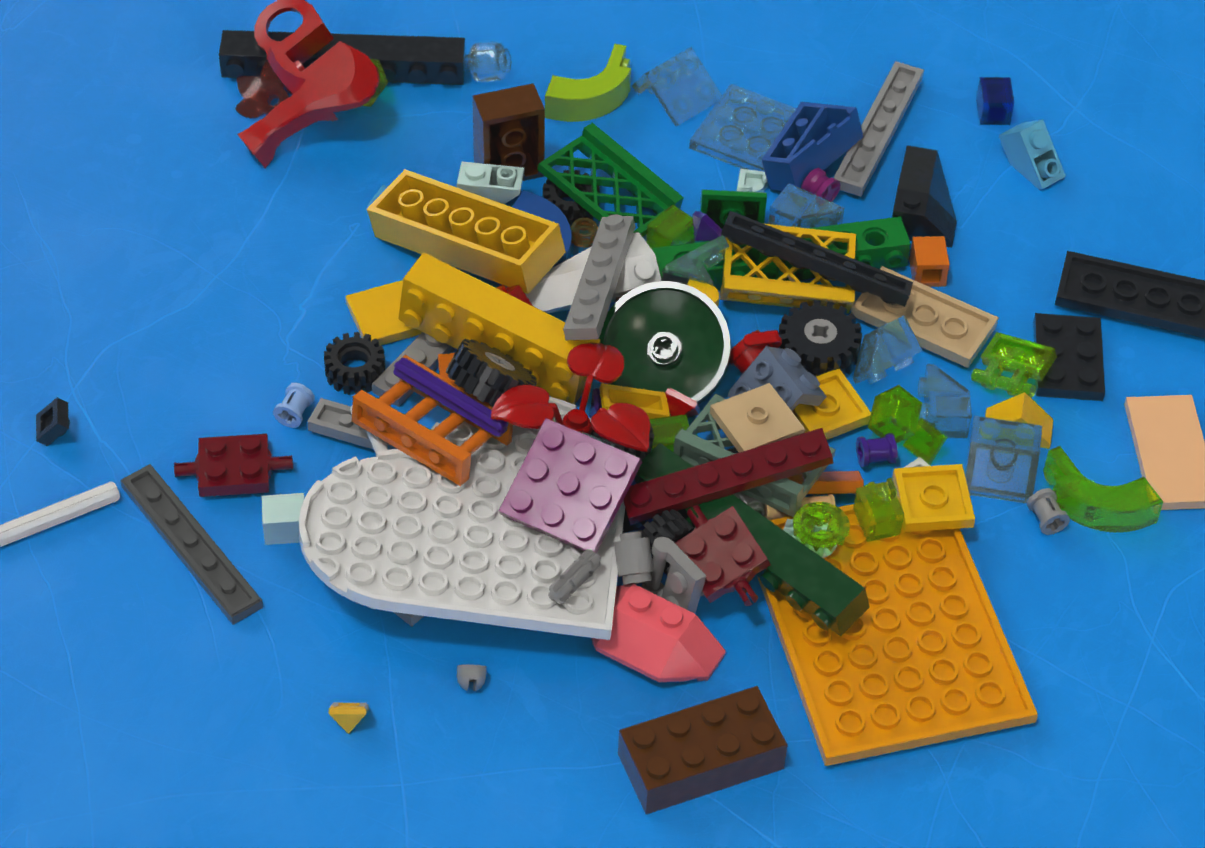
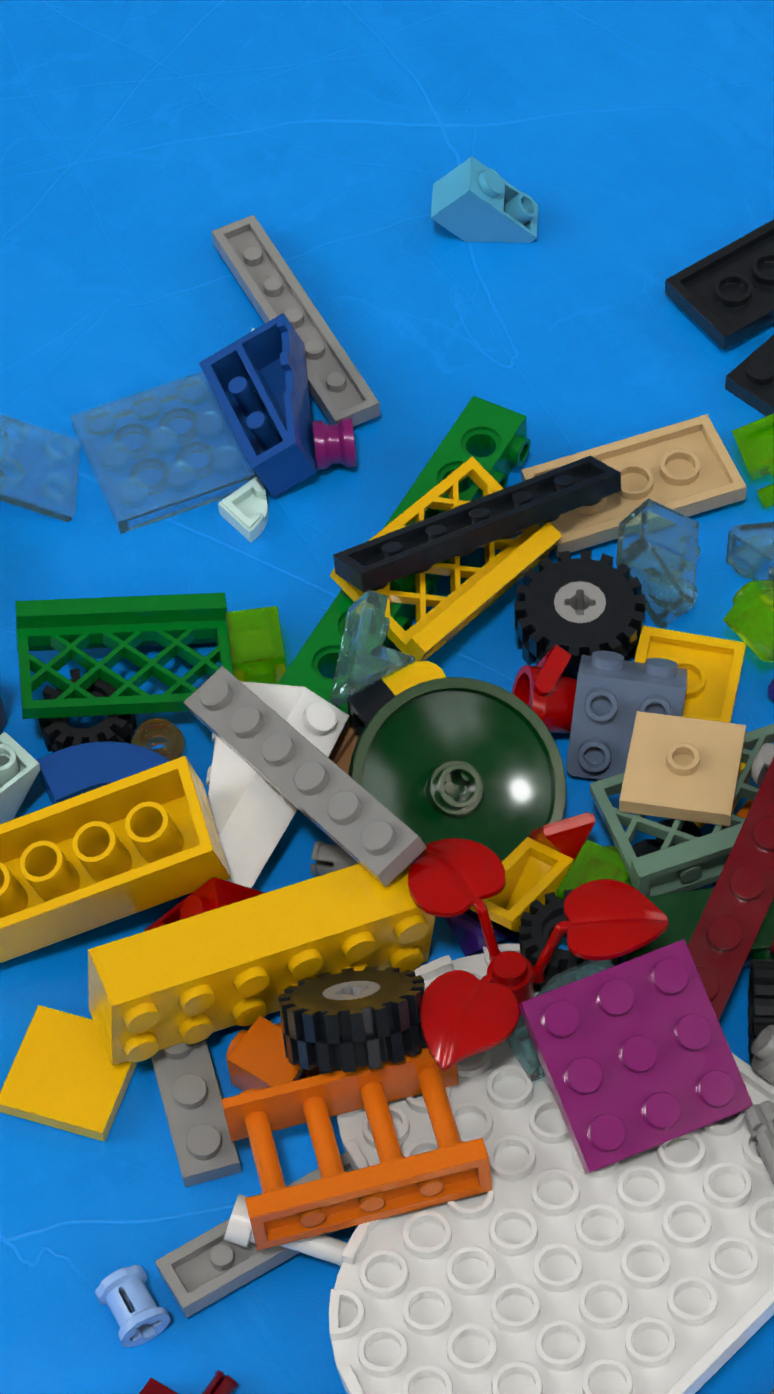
camera: 45 degrees left, 5 degrees up
(350, 349) = (134, 1205): black tyre -> none
(449, 396) = (344, 1096): dark purple axle -> none
(704, 227) = (304, 603): dark purple slope -> none
(719, 203) = (291, 558): green slope -> none
(803, 209) = (360, 490): clear light blue slope -> none
(924, 196) = (440, 358): black wedge -> none
(929, 260) = (556, 418): orange brick -> none
(995, 101) = (368, 184): clear blue brick -> none

